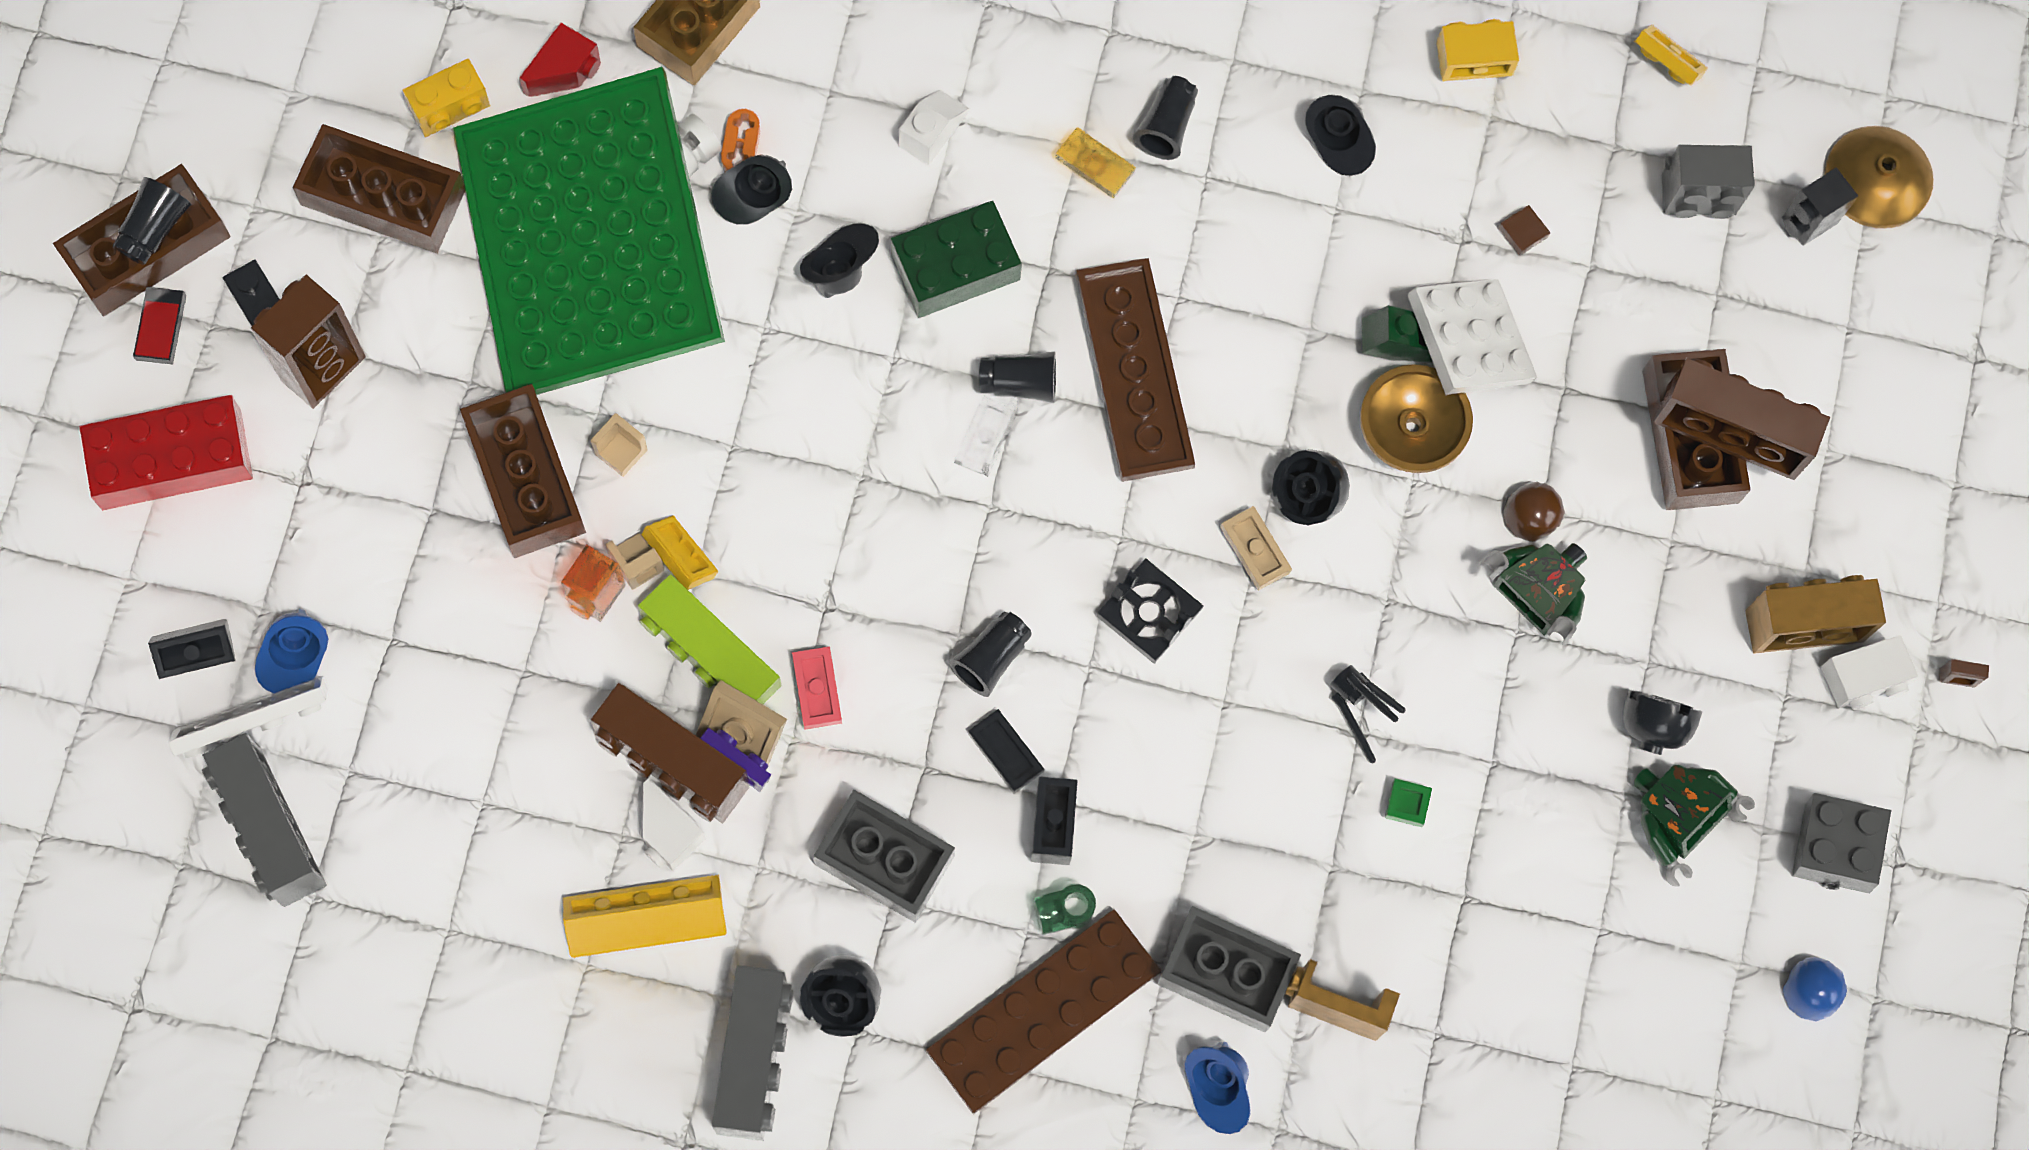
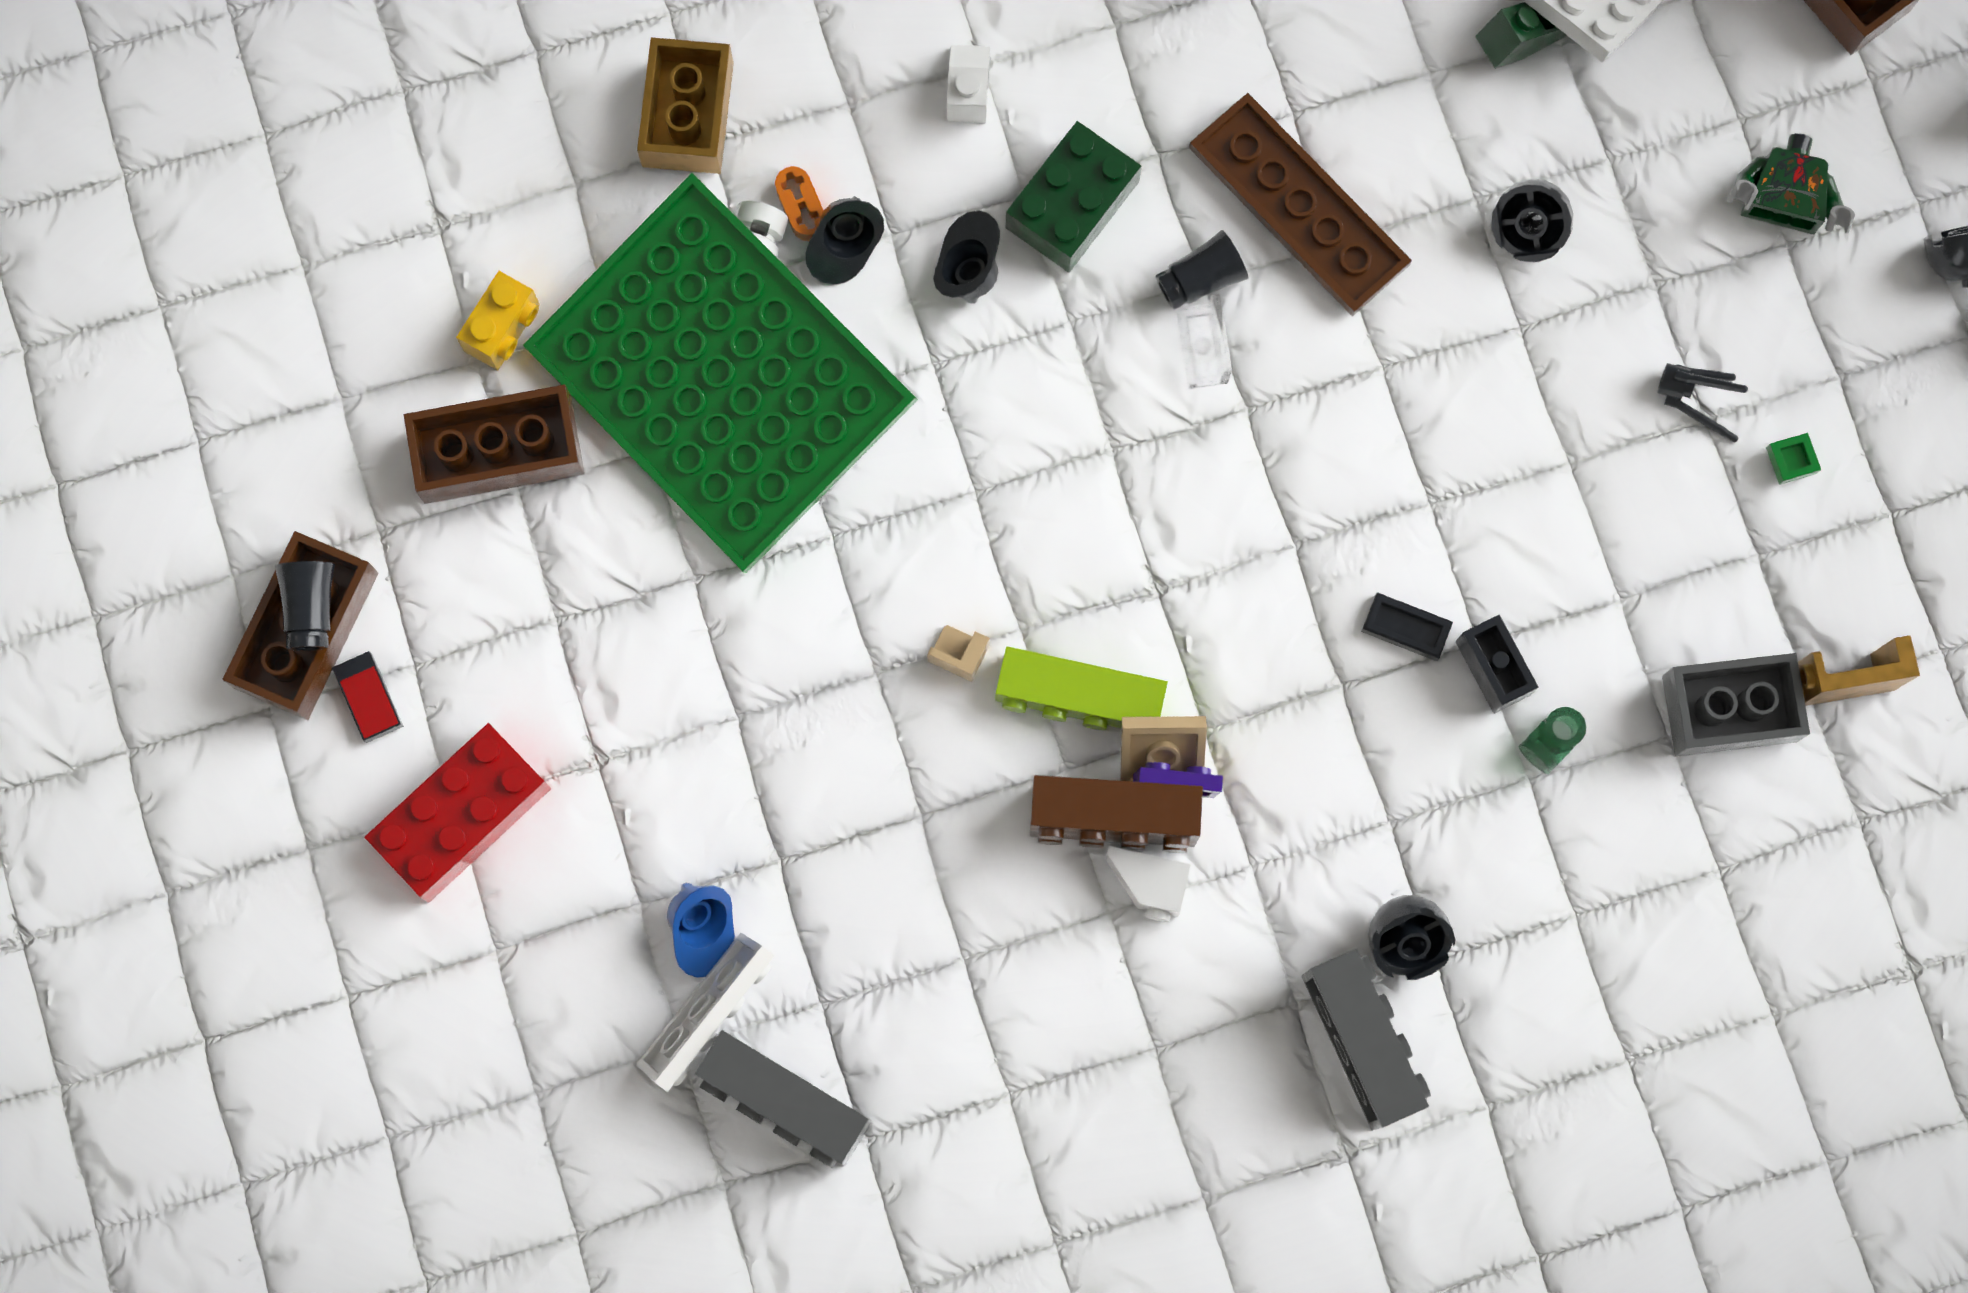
camera: 25 degrees left, 5 degrees up
(192, 648) = (601, 980): black slope -> none
(251, 290) = (454, 621): black brick -> none
(308, 340) = (534, 627): reddish brown brick -> none
(523, 471) = (805, 631): reddish brown brick -> none
(561, 63) = (585, 223): red slope -> none
(593, 584) = (941, 698): clear orange brick -> none
(619, 445) = (876, 554): tan panel -> none
(644, 916) = (1181, 972): yellow panel -> none
(679, 552) = (996, 620): yellow plate -> none
(817, 688) = (1202, 671): coral plate -> none
(884, 855) = (1366, 787): dark grey brick -> none
(991, 653) = (1340, 545): black plant -> none
(1043, 1011) = (1591, 842): reddish brown plate -> none
(1095, 162) = (1140, 31): clear yellow plate -> none
(1149, 574) = (1485, 395): black piece -> none
(1219, 1087) = (1792, 815): blue piece -> none
(1256, 548) = (1513, 306): tan plate -> none
(1417, 397) = (1606, 91): pearl gold dish -> none
(1533, 511) = (1736, 125): reddish brown hair -> none

